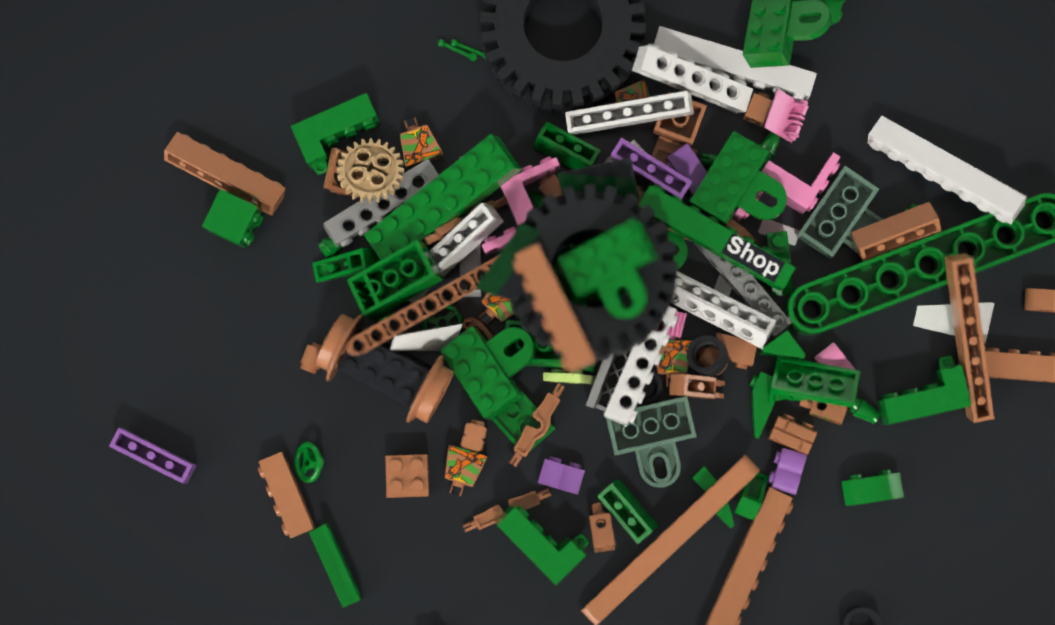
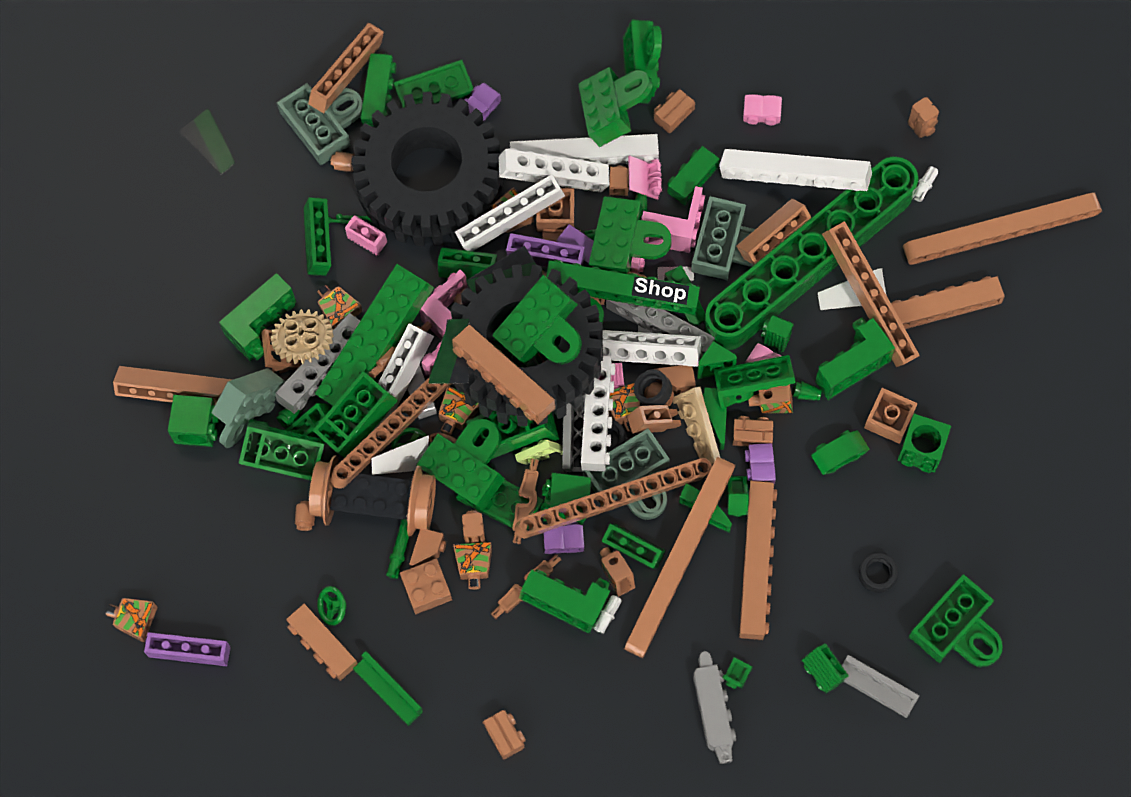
camera: 25 degrees left, 15 degrees down
(110, 401) = (133, 617): none -> torso
(291, 222) = (243, 401): none -> sand green brick
(308, 284) = (280, 450): none -> green hinge
(389, 435) = (397, 556): none -> green pin
(422, 436) = (427, 547): none -> nougat slope
(423, 60) = (317, 236): none -> green brick
(474, 77) = (366, 235): none -> bright pink brick
(577, 439) = (563, 489): none -> green brick
(584, 564) = (607, 614): none -> white axle
(615, 461) = (606, 501): none -> nougat beam
(740, 407) = (695, 414): none -> tan wing
(837, 130) = (693, 174): none -> green brick
(845, 50) = (674, 110): none -> nougat brick
(857, 339) = (777, 332): none -> green brick
(938, 82) = (762, 109): none -> bright pink brick
(939, 469) = (890, 415): none -> nougat brick
(979, 512) = (927, 428): none -> green brick

